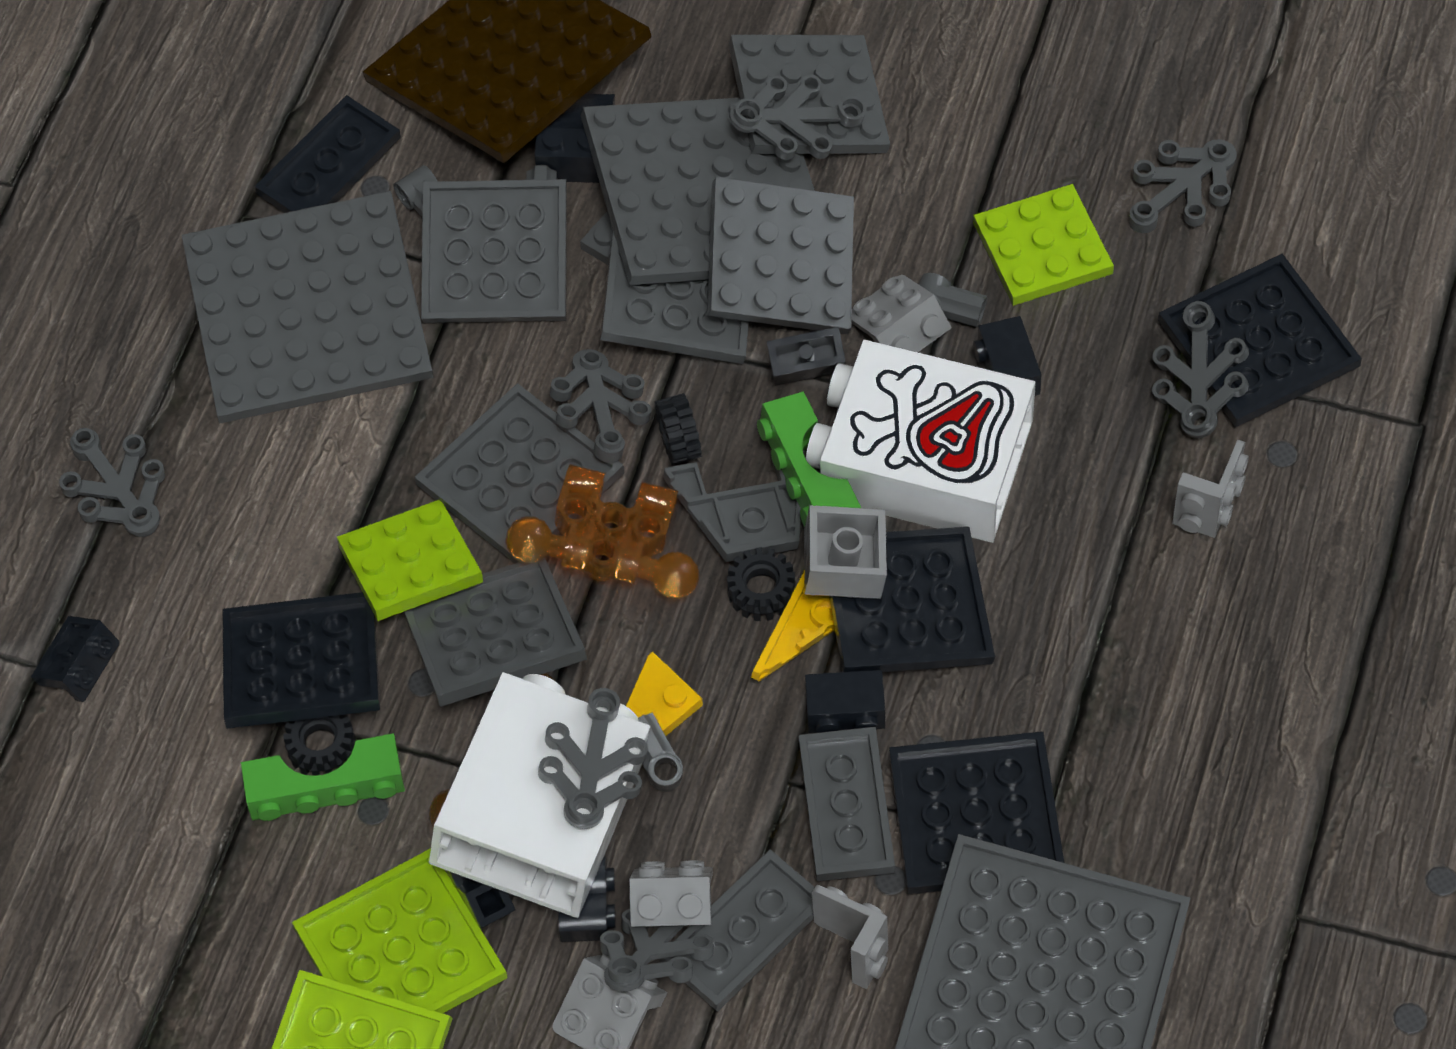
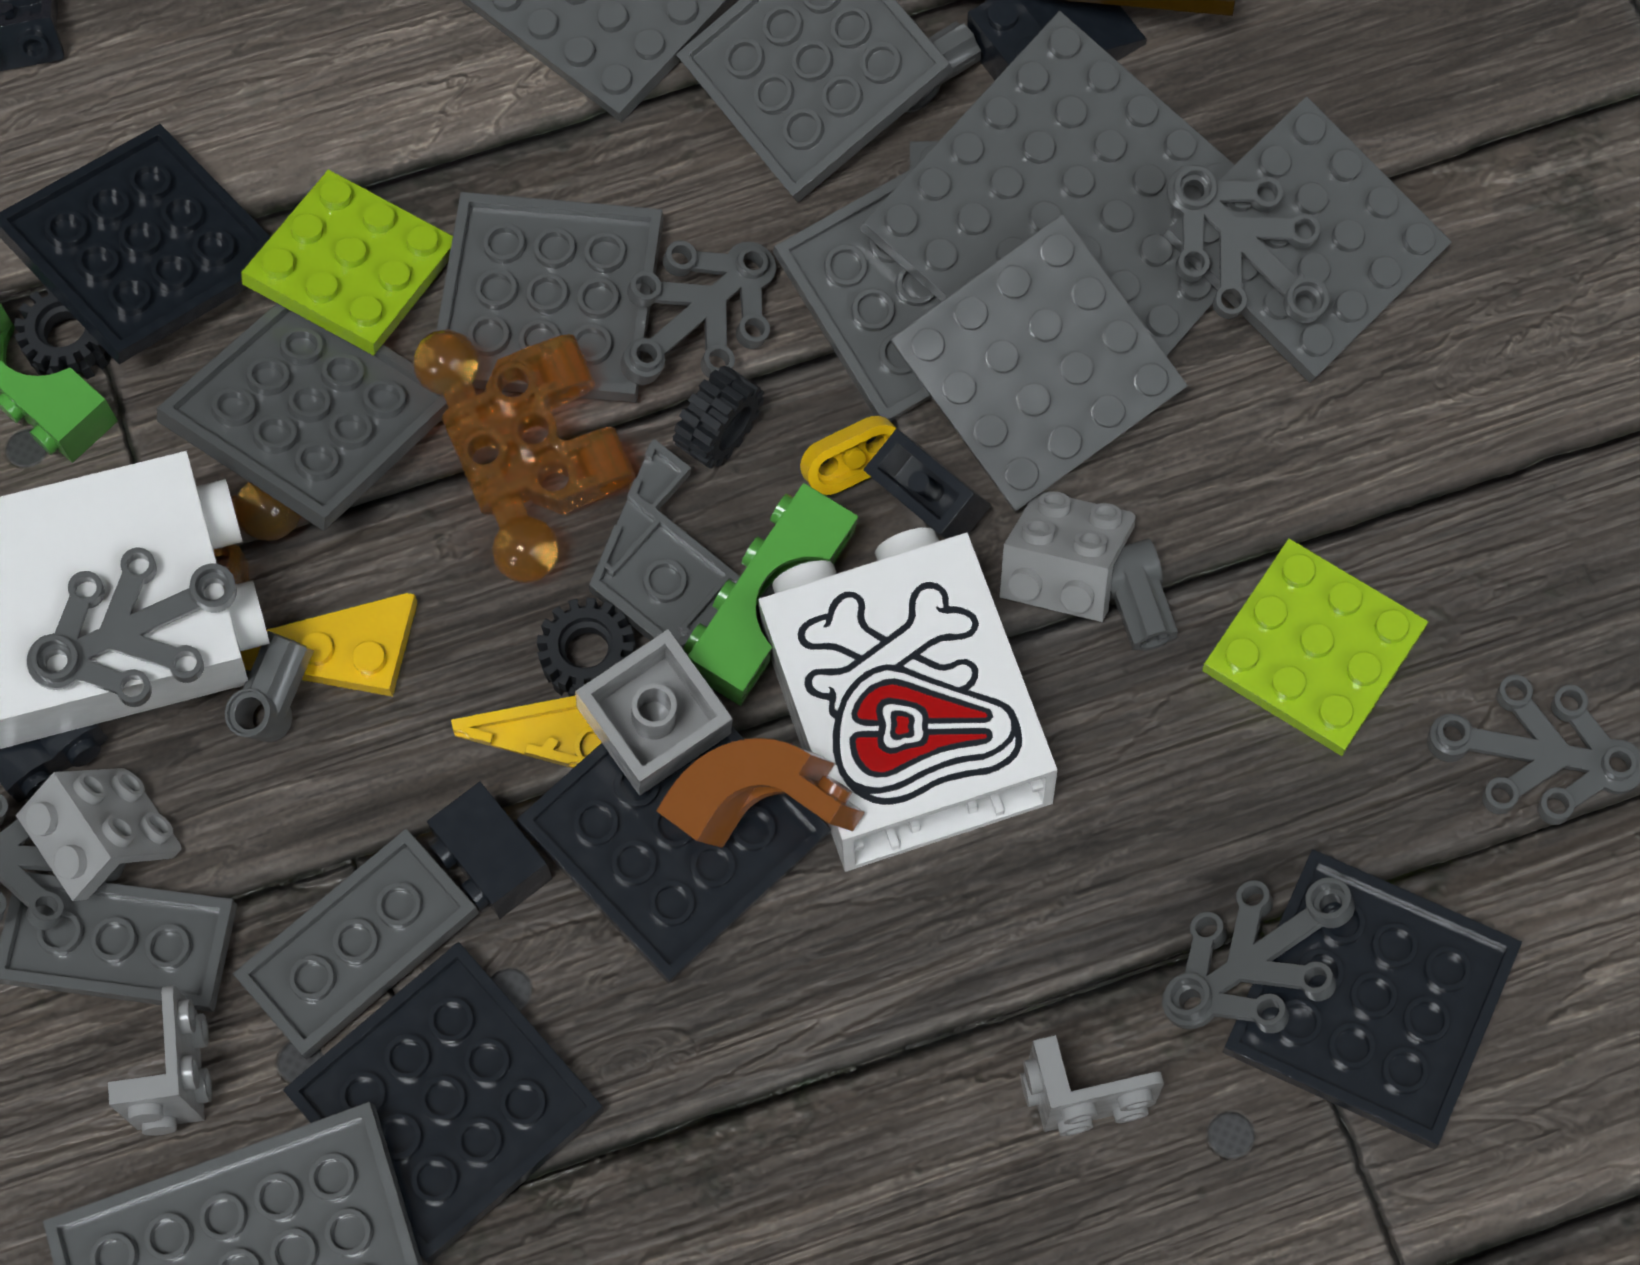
camera: 55 degrees right, 10 degrees up
(752, 383) = (847, 455): none -> yellow plate
(920, 520) = (735, 776): none -> dark orange arch
(1007, 350) = (1105, 716): black brick -> none

